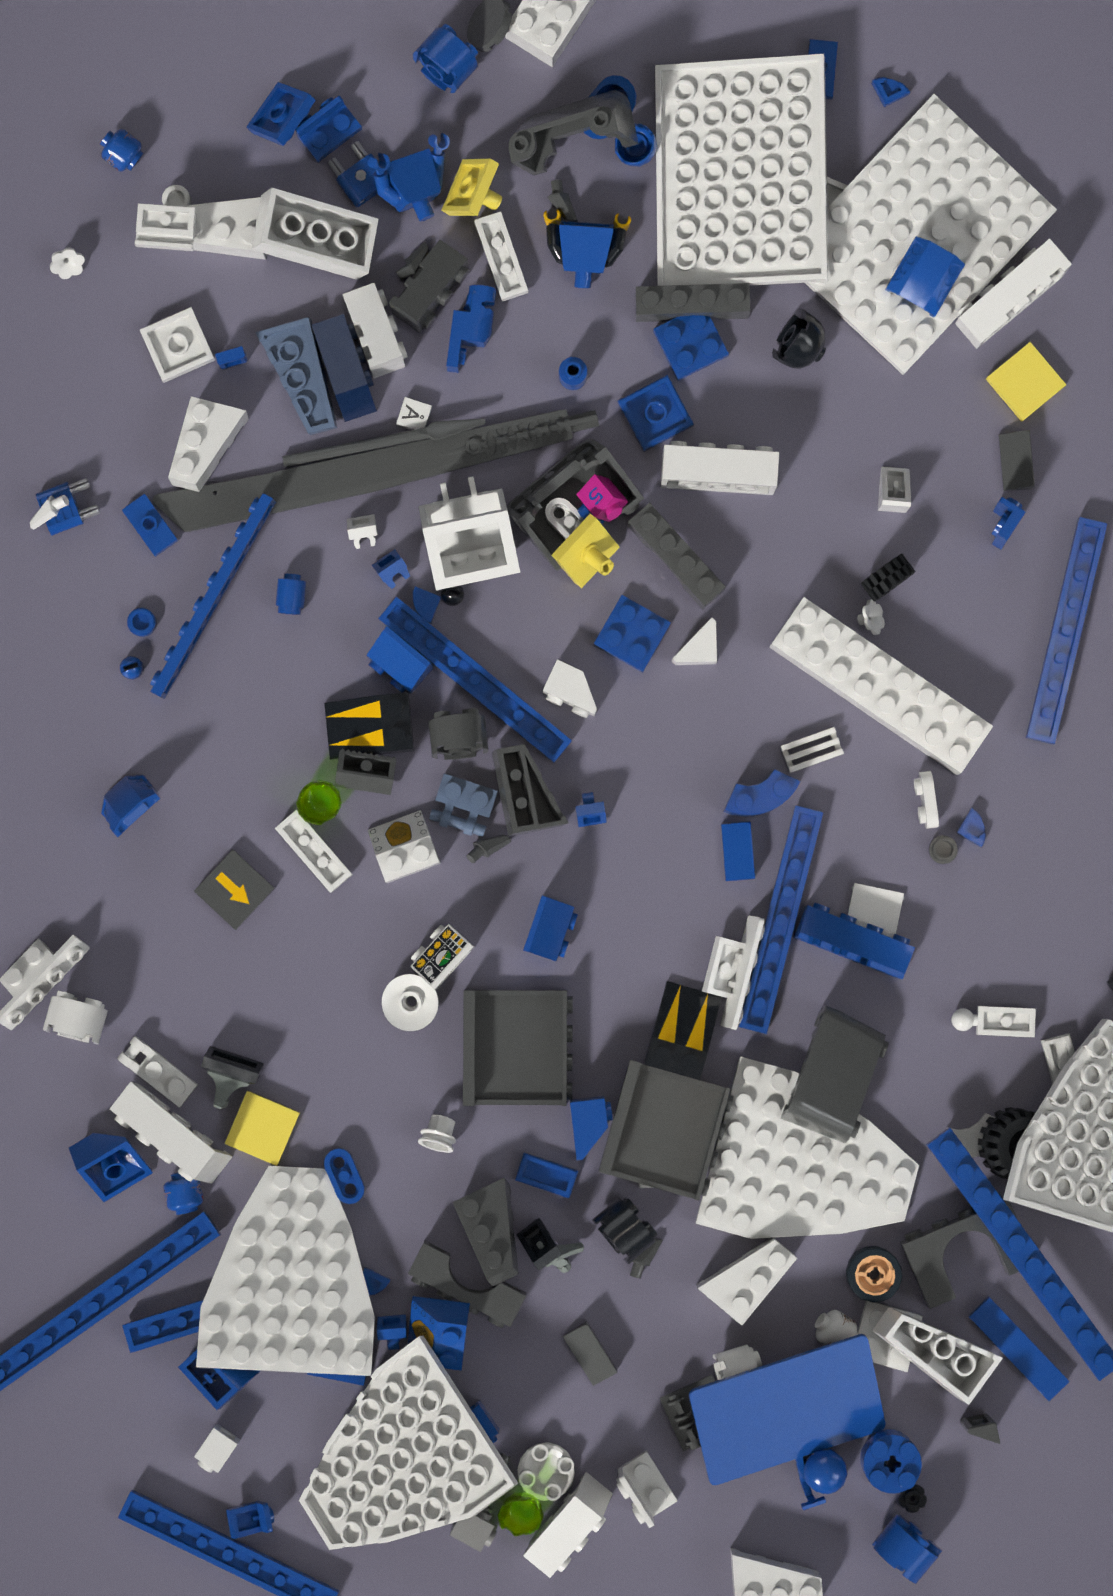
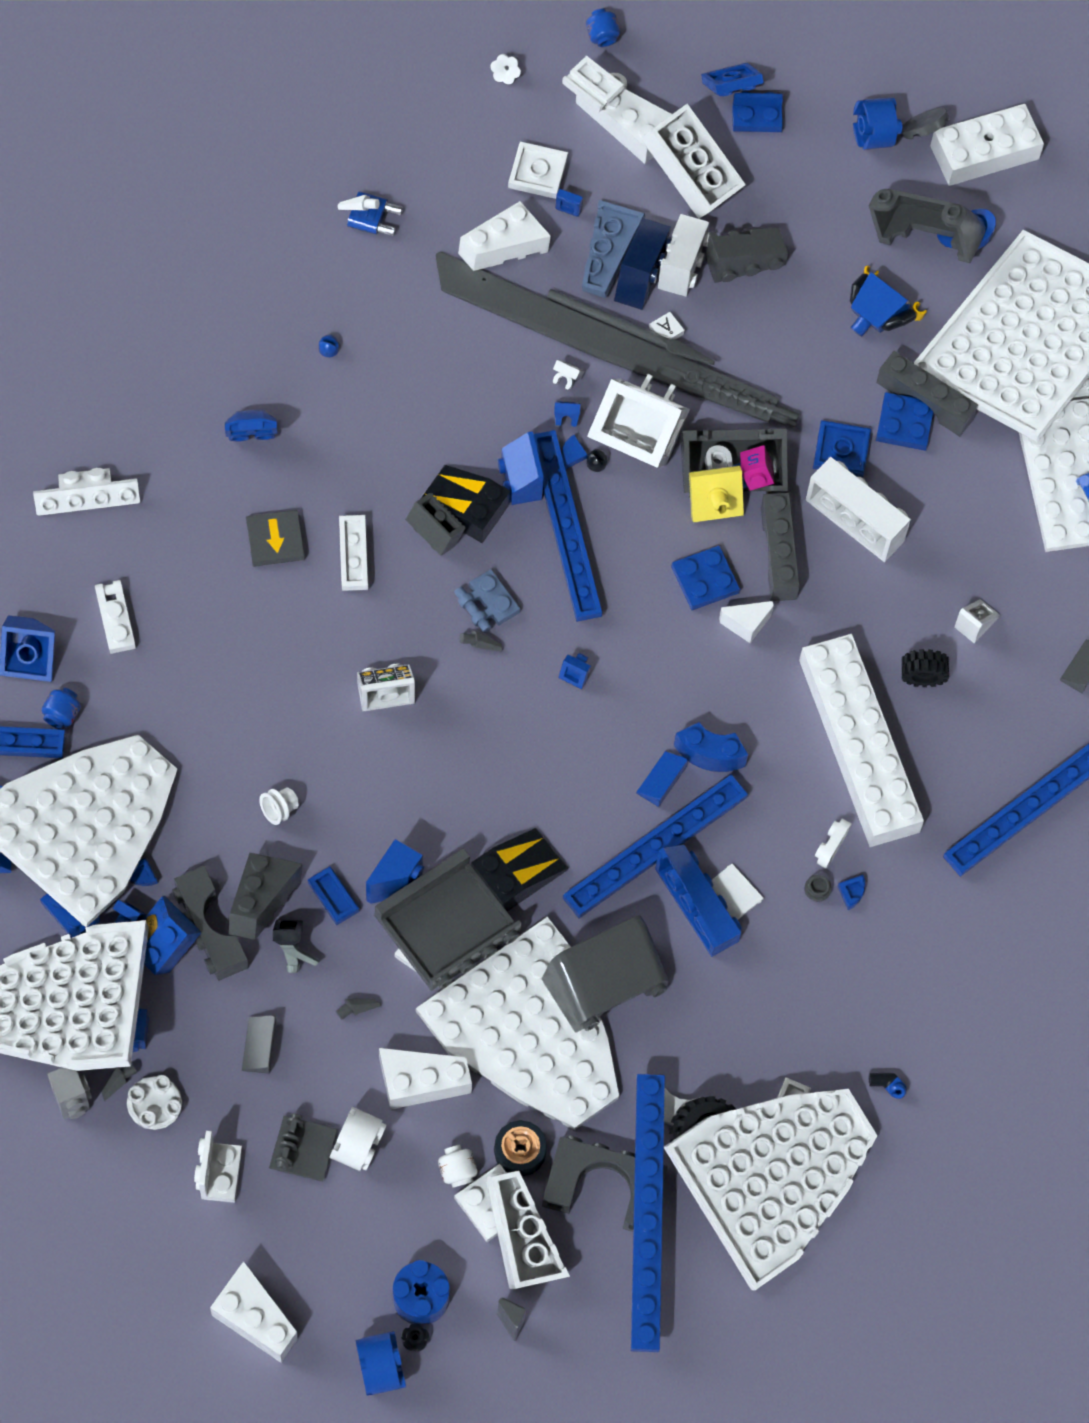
camera: 30 degrees right, 20 degrees down
(75, 1018) = (90, 533): white brick -> none
(141, 622) = (361, 323): blue tile -> none
(150, 525) = (420, 267): blue plate -> none
(169, 1134) = (87, 661): white wedge -> none
(206, 605) = (426, 338): blue plate -> none
(229, 1073) = (163, 653): black piece -> none
(262, 1128) = (155, 709): light yellow tile -> none
(290, 594) = (481, 377): blue brick -> none
(318, 802) = (385, 520): clear neon green hair -> none
(342, 1176) = (186, 784): blue plate -> none
(358, 179) = (755, 160): blue piece -> none
(397, 1009) = (328, 692): white dish -> none
(403, 846) = (419, 598): white slope -> none
(413, 178) = (789, 179): blue torso -> none
(458, 734) = (523, 547): dark grey brick -> none
(471, 326) = (753, 299): blue plate -> none
(472, 189) = (827, 214): light yellow tile -> none
(501, 256) = (813, 272): white plate -> none
(516, 1047) = (384, 788): dark grey panel -> none
(521, 1514) = (109, 1115): clear neon green hair -> none
(523, 793) = (538, 621): dark grey wedge -> none
(549, 929) = (478, 721): blue slope -> none
(562, 201) = (885, 267): dark grey bar -> none
(569, 1526) = (138, 1150): white wedge -> none
(570, 686) = (630, 577): white slope -> none
(573, 382) = (802, 377): blue brick -> none
(624, 1229) = (359, 968): black brick -> none
(641, 153) = (968, 273): blue hair -> none
(731, 970) = (588, 850): white bracket -> none
(788, 1411) = (373, 1188): blue piece -> none
(801, 341) = (986, 473): black cylinder -> none
(825, 1471) = (364, 1263): blue hair -> none
(834, 742) = (780, 741): white tile -> none
(872, 617) = (892, 690): white plant -> none
(997, 1021) = (762, 1037): white plate -> none
(1011, 515) = (1044, 694): blue bracket -> none
(1018, 1348) = (587, 1290): blue tile -> none

